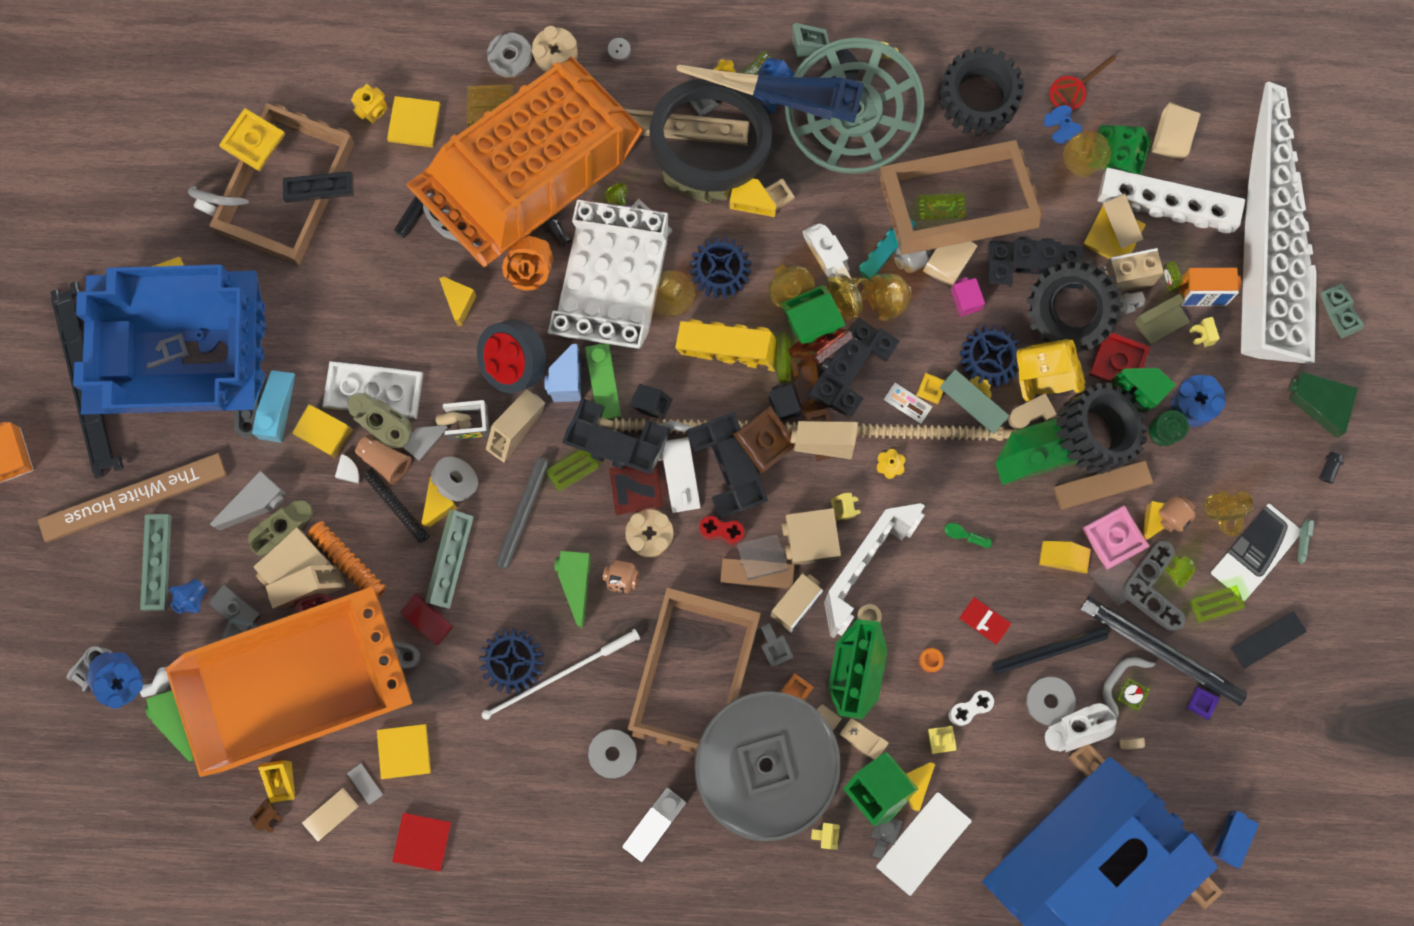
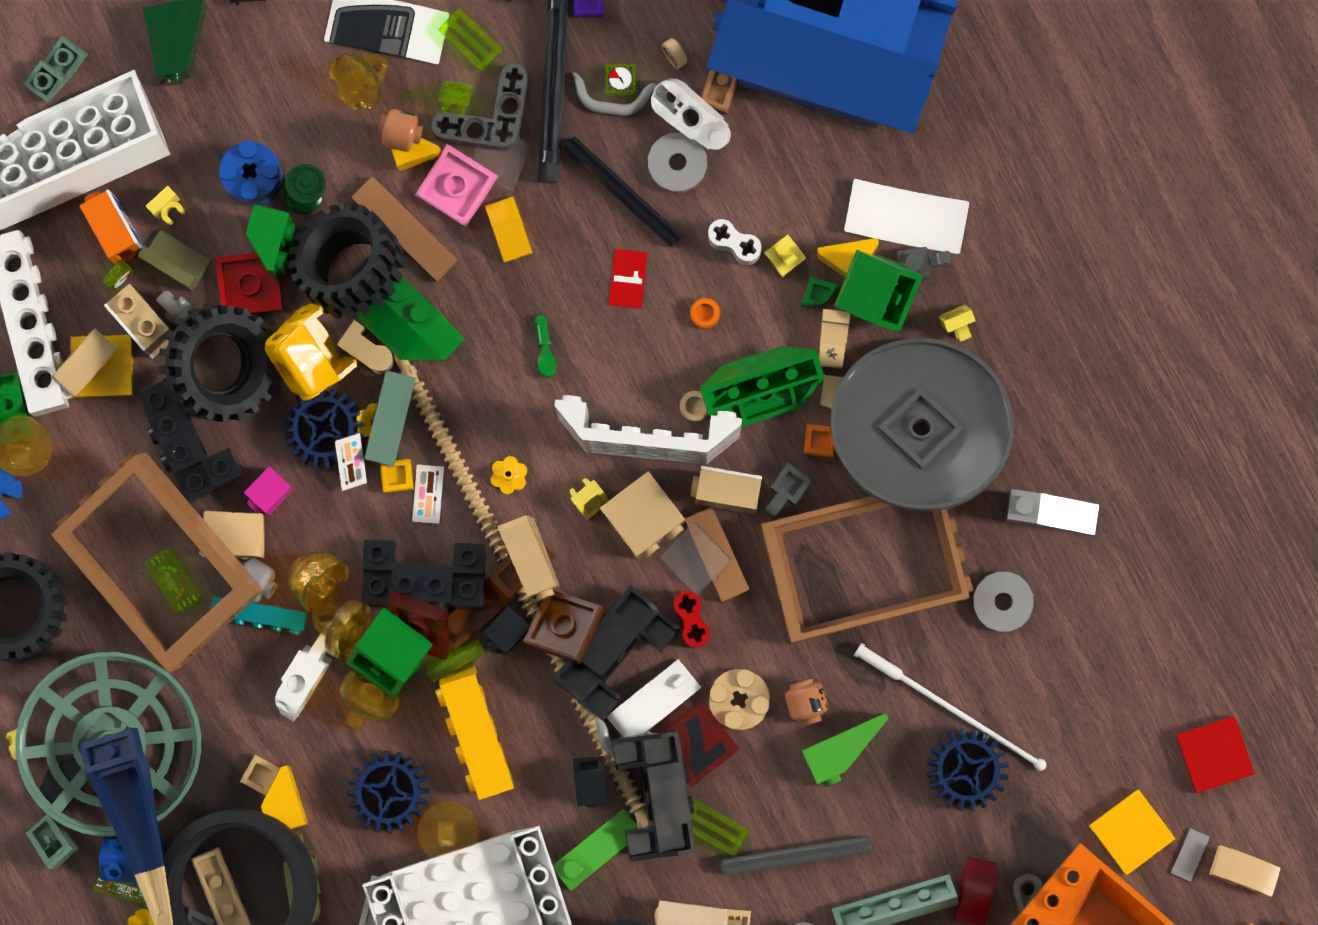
camera: 120 degrees left, 5 degrees up
(565, 377) = (617, 893): light blue slope -> none
(902, 748) = (818, 292): none -> green tile
(958, 359) = (350, 468): none -> white sticker

